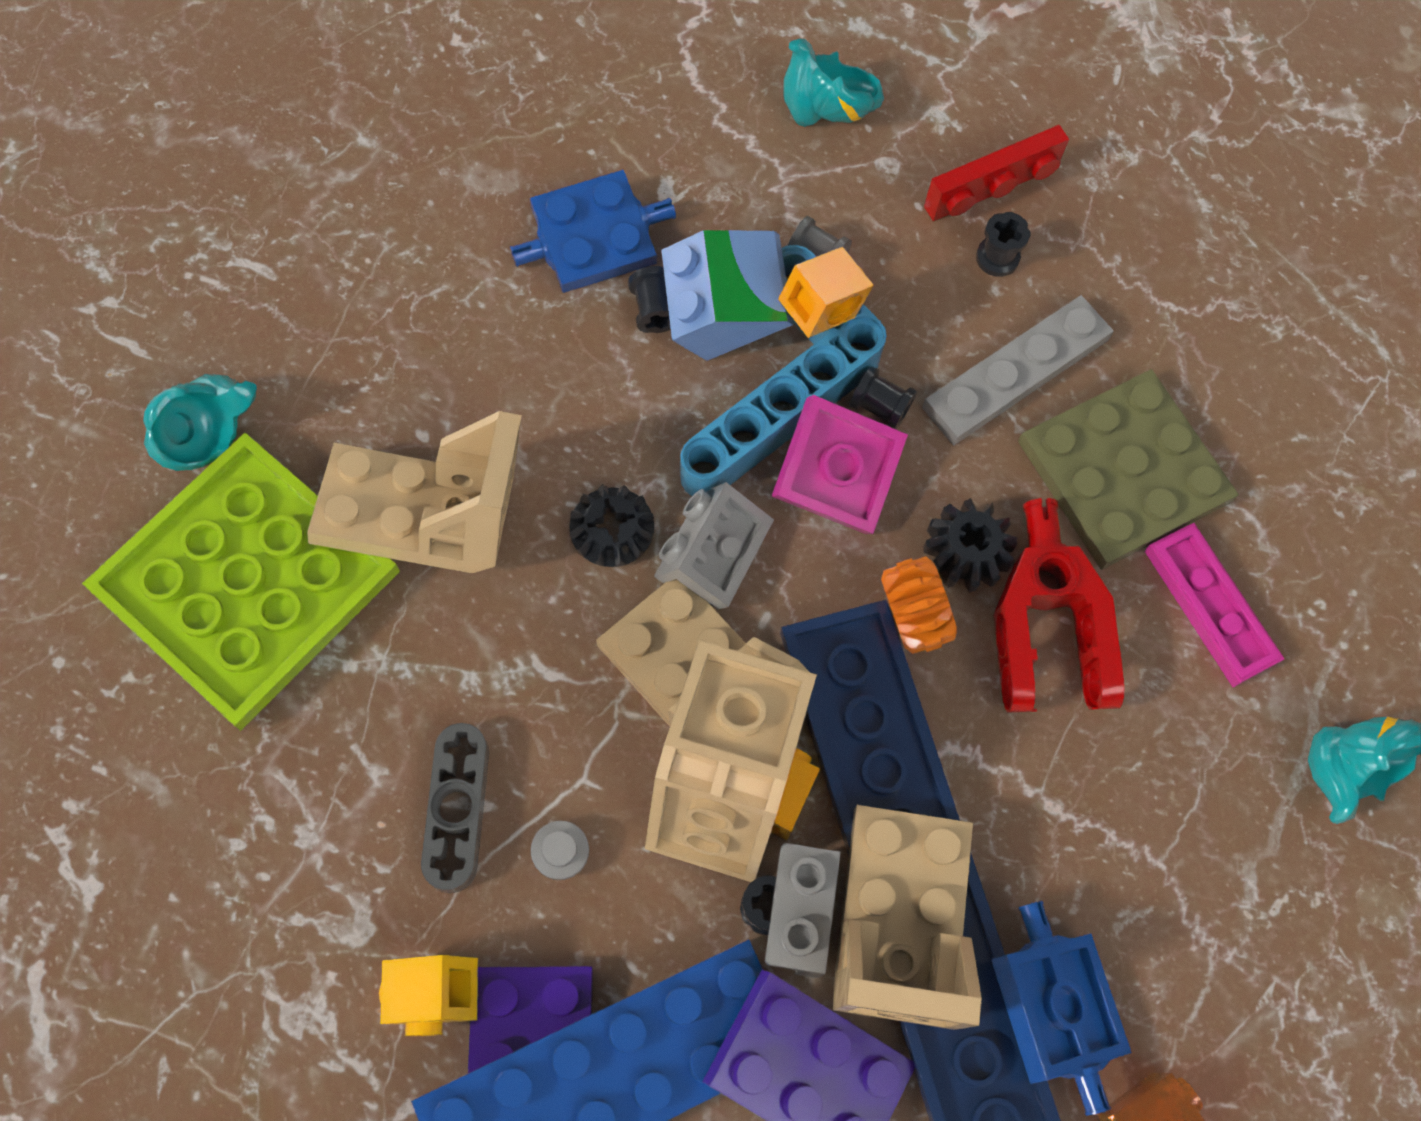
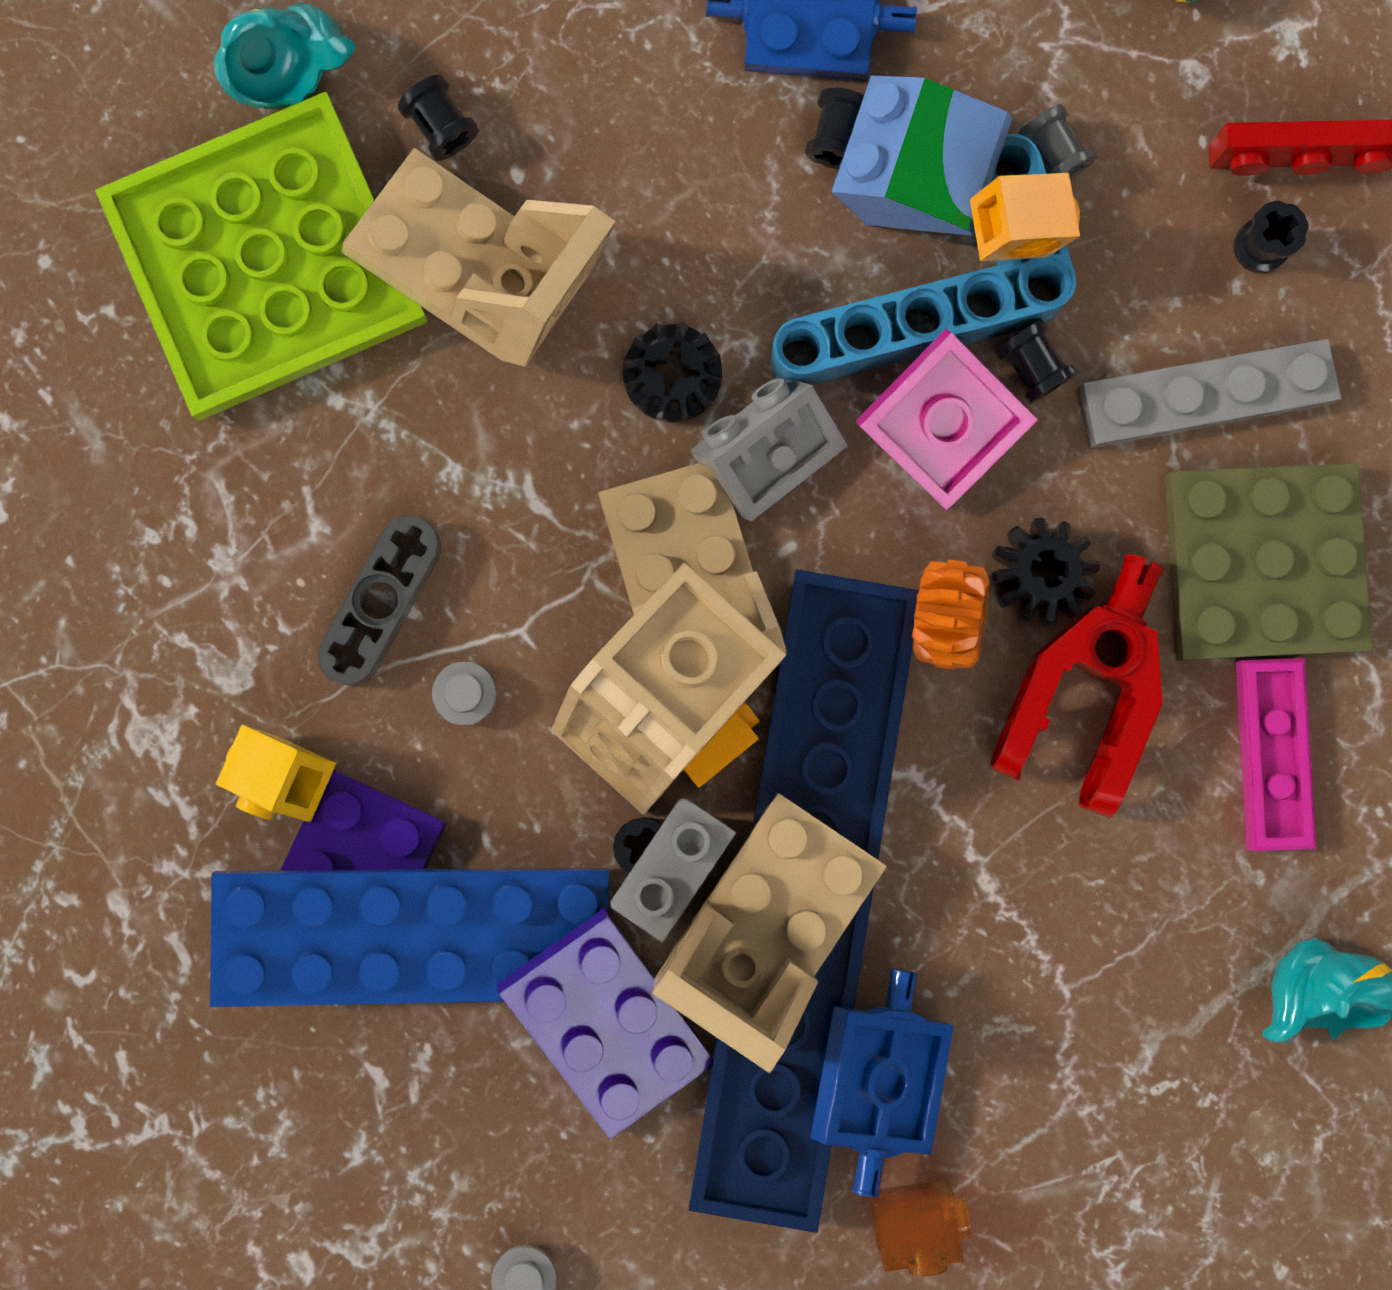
camera: 25 degrees right, 15 degrees up
(342, 416) = (438, 117): none -> black bush

